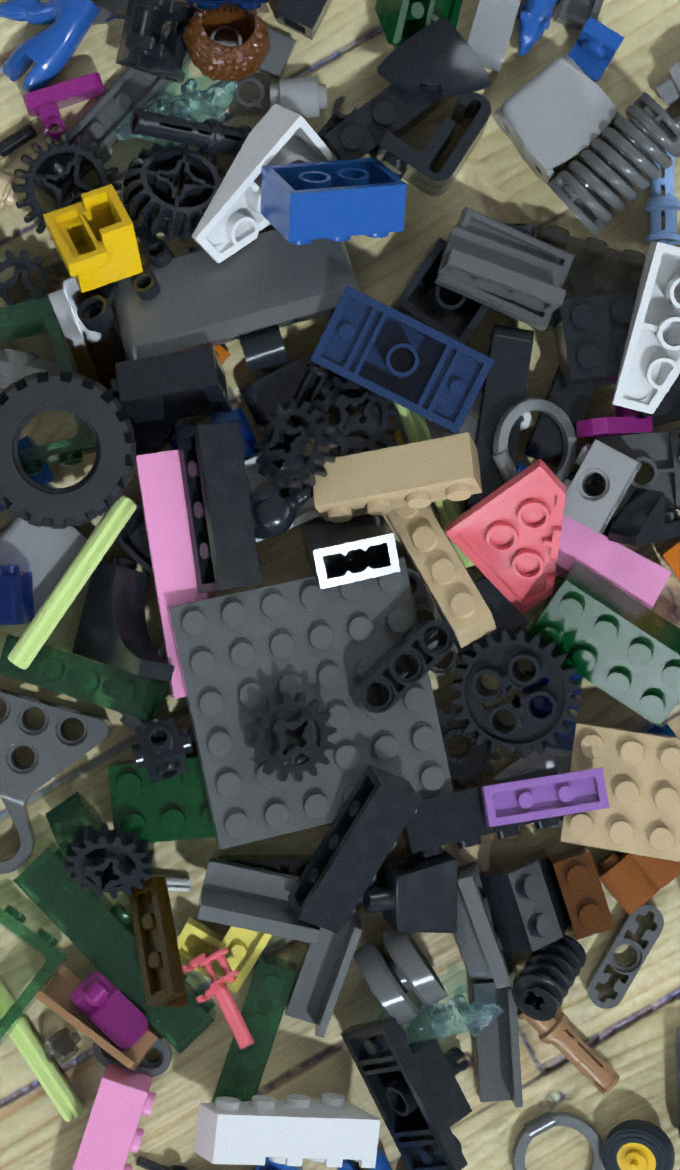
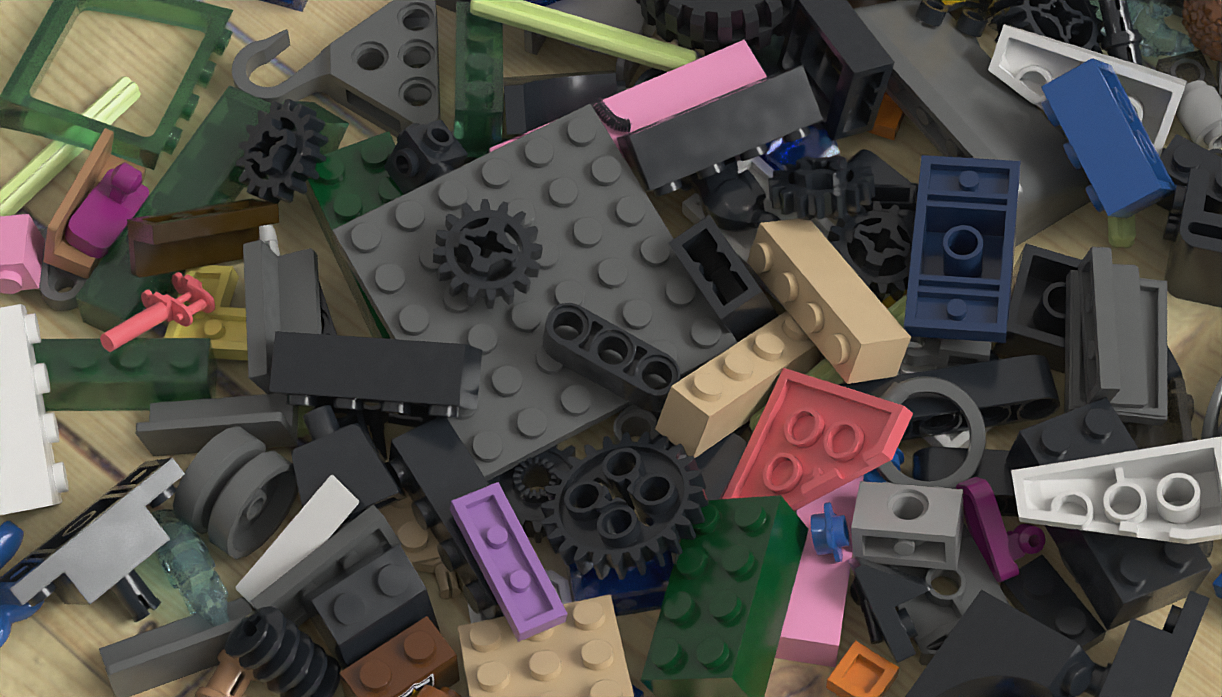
camera: 75 degrees right, 30 degrees down
(62, 1046) = (48, 192): clear smoke plate -> none
(181, 591) = (613, 118): none -> black leg
(264, 349) = (911, 138): black piece -> none
(462, 941) = (301, 537): none -> white sticker
(590, 548) = (829, 532): none -> blue plate

